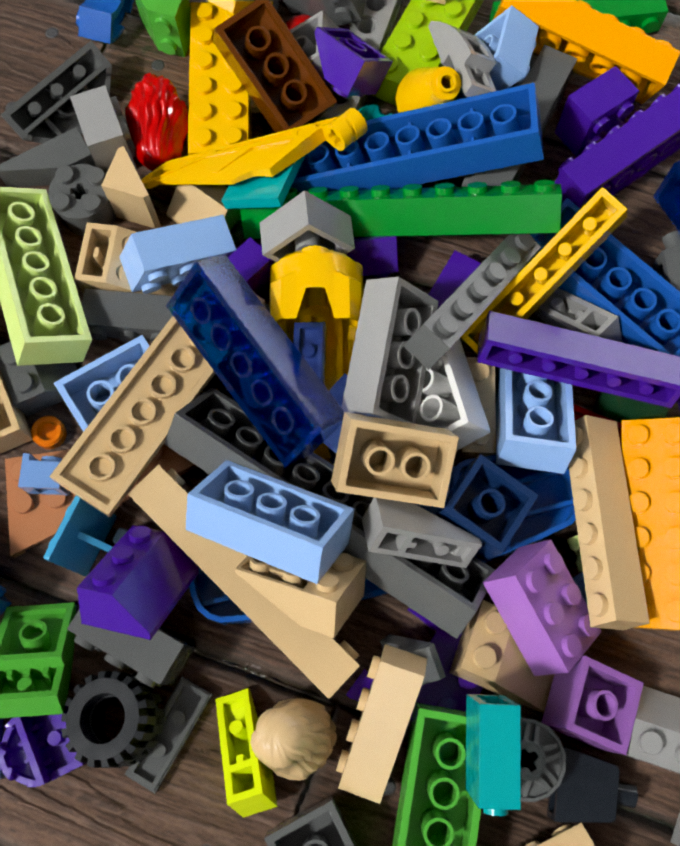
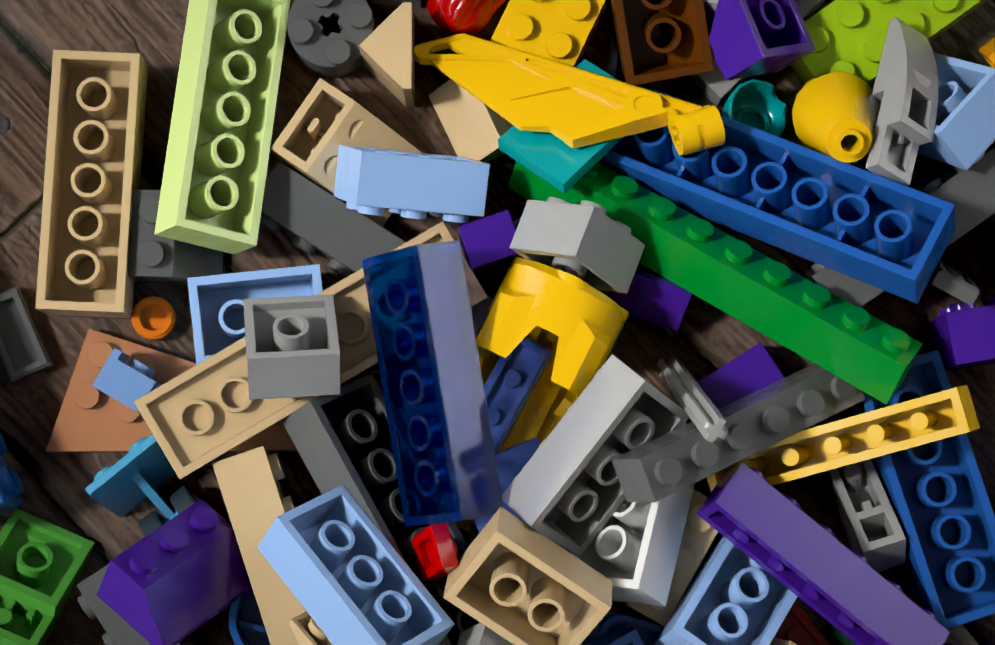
camera: 25 degrees right, 10 degrees up
(146, 386) = (291, 347): none -> light grey slope
(314, 470) = (435, 552): none -> red plate
(448, 282) = (692, 399): none -> light grey axle
(556, 149) = (954, 282): none -> dark grey tile

